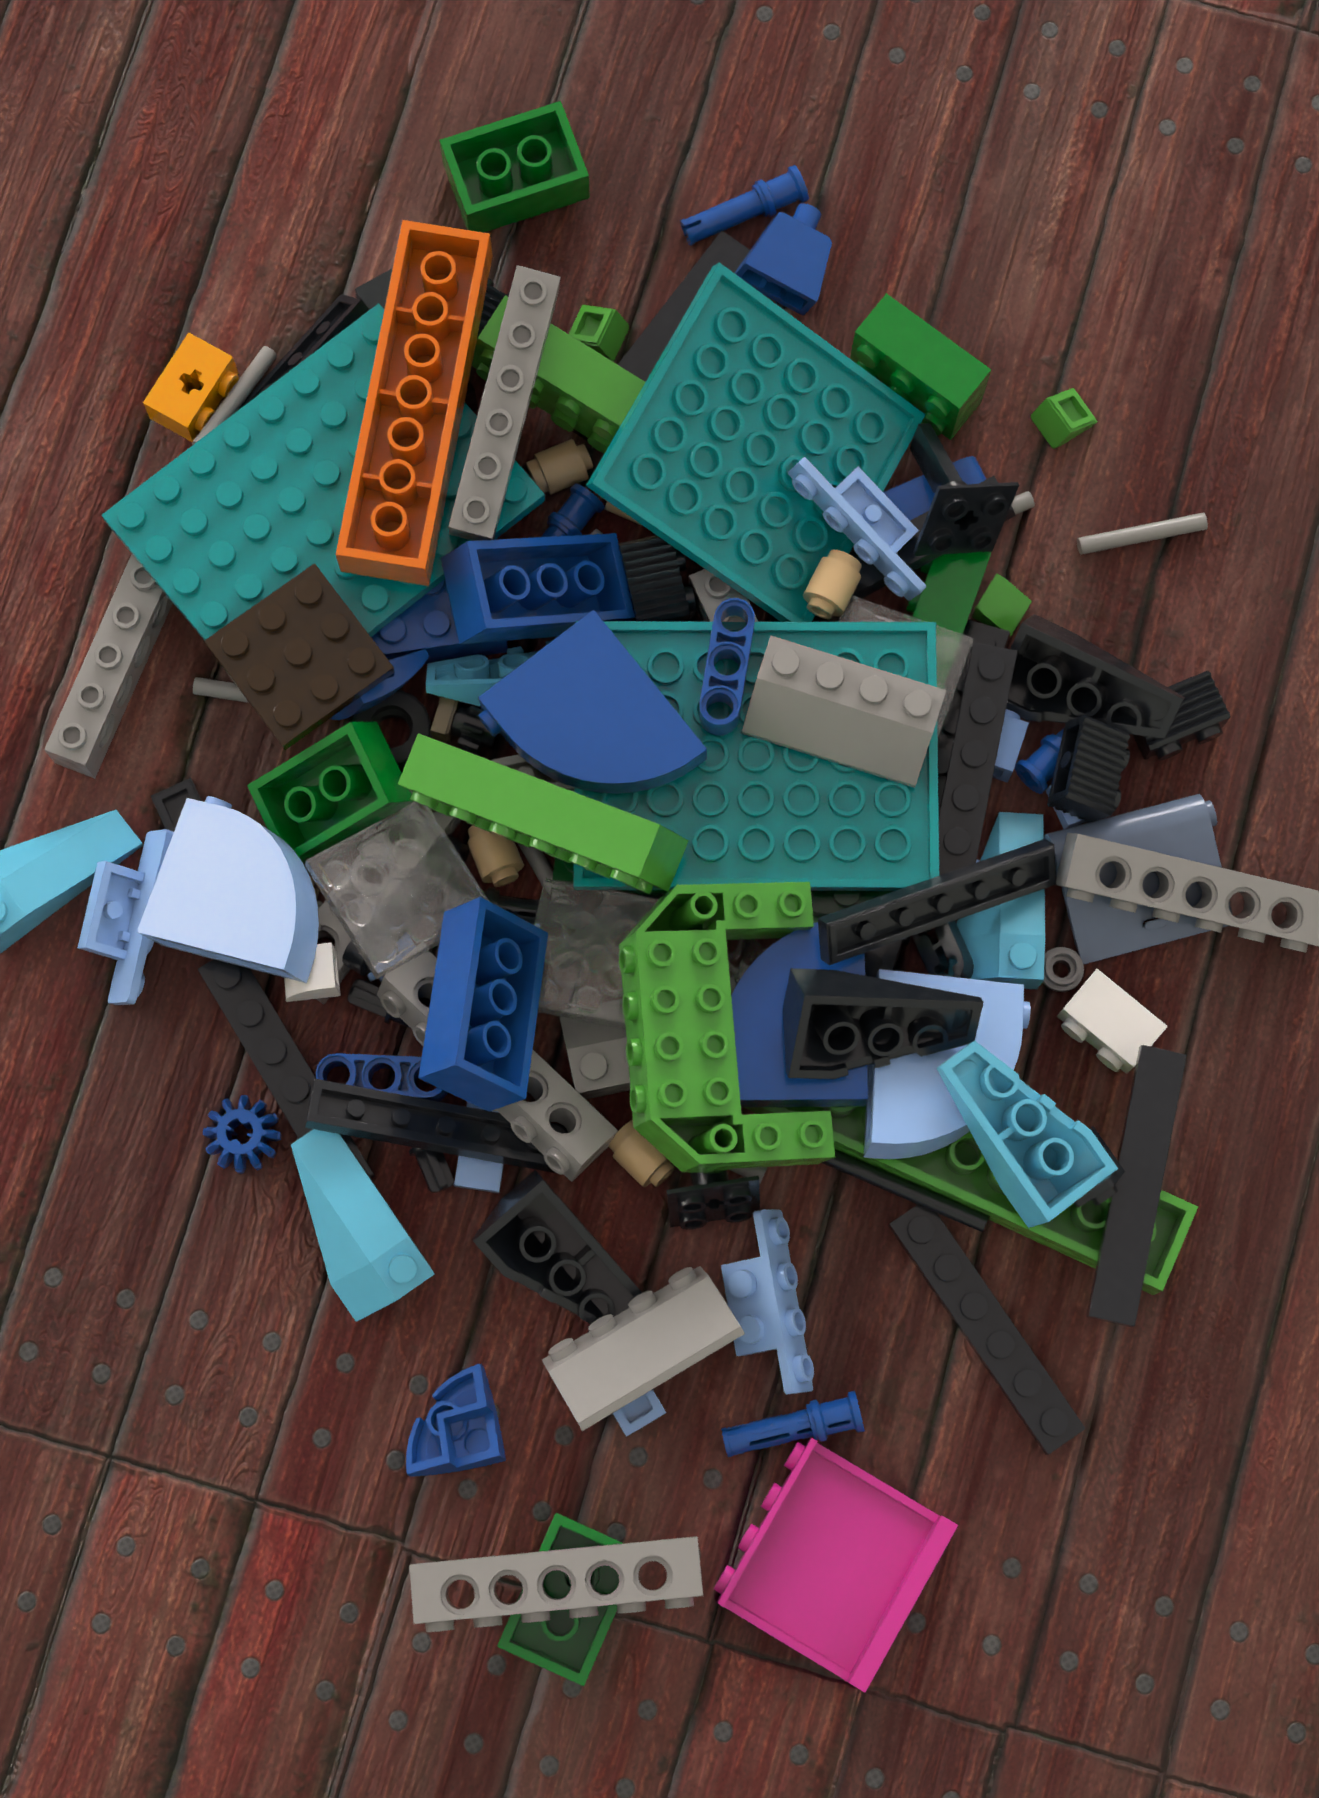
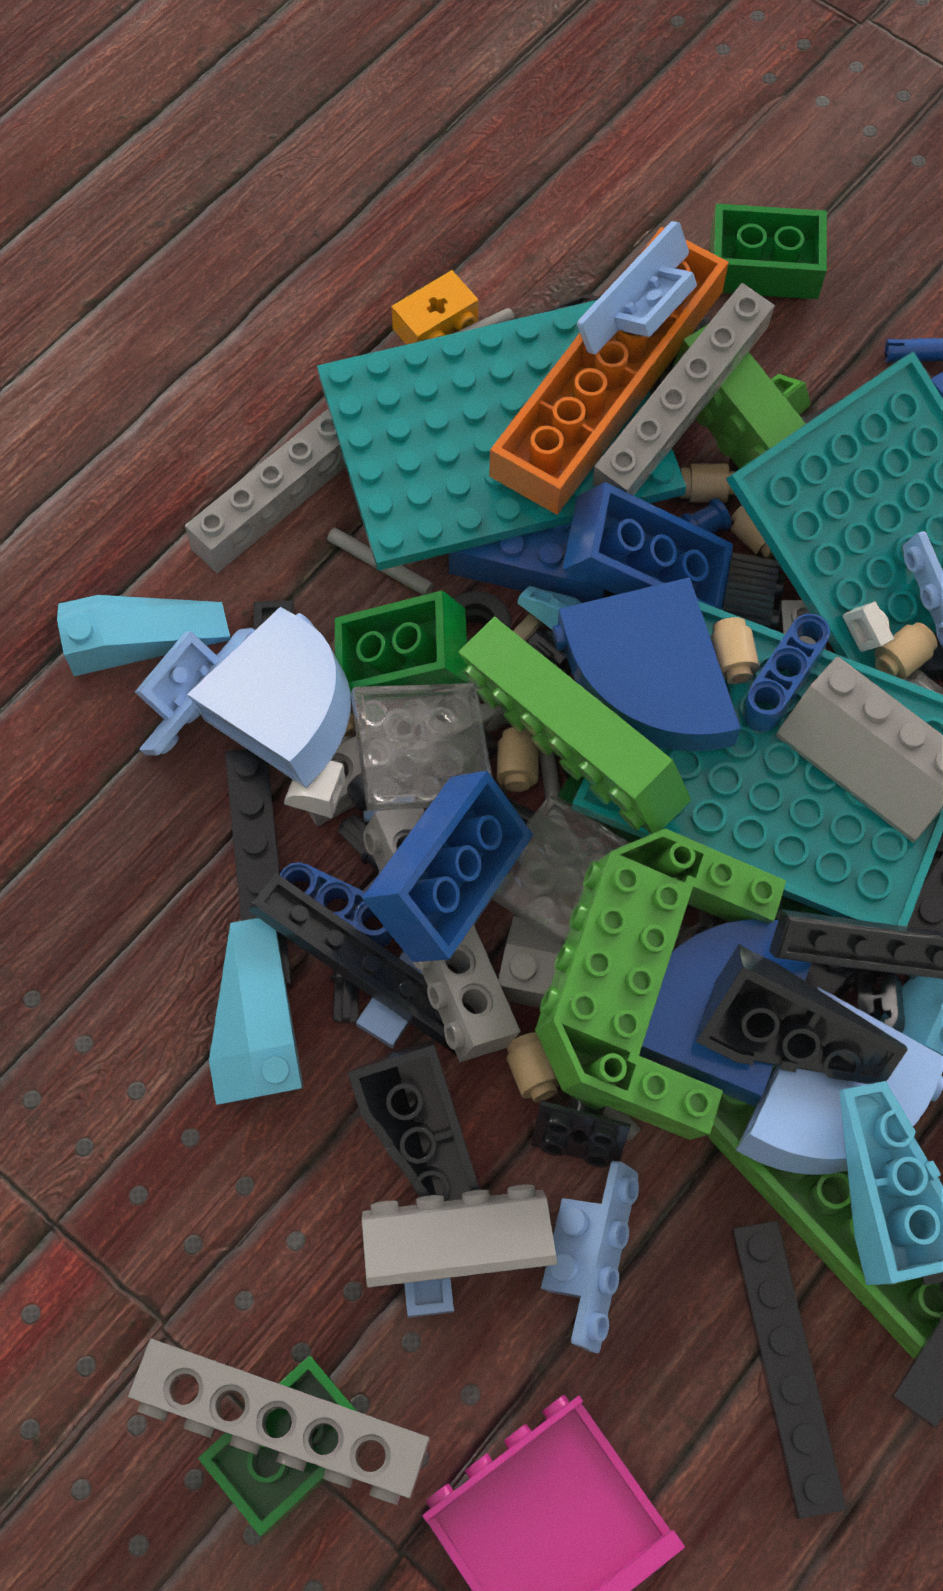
camera: 25 degrees right, 10 degrees down
(251, 1119) = (190, 885): blue gear -> none
(299, 656) = (424, 527): dark brown plate -> none
(405, 669) = (497, 583): blue brick -> none
(420, 315) = (642, 293): none -> light blue bracket
(459, 1428) = (261, 1242): blue brick -> none
(667, 664) = (735, 650): none -> tan brick
(787, 576) = (868, 626): none -> white plate
(815, 1422) = (588, 1382): blue pin -> none
(909, 1191) = (762, 1203): black bar -> none

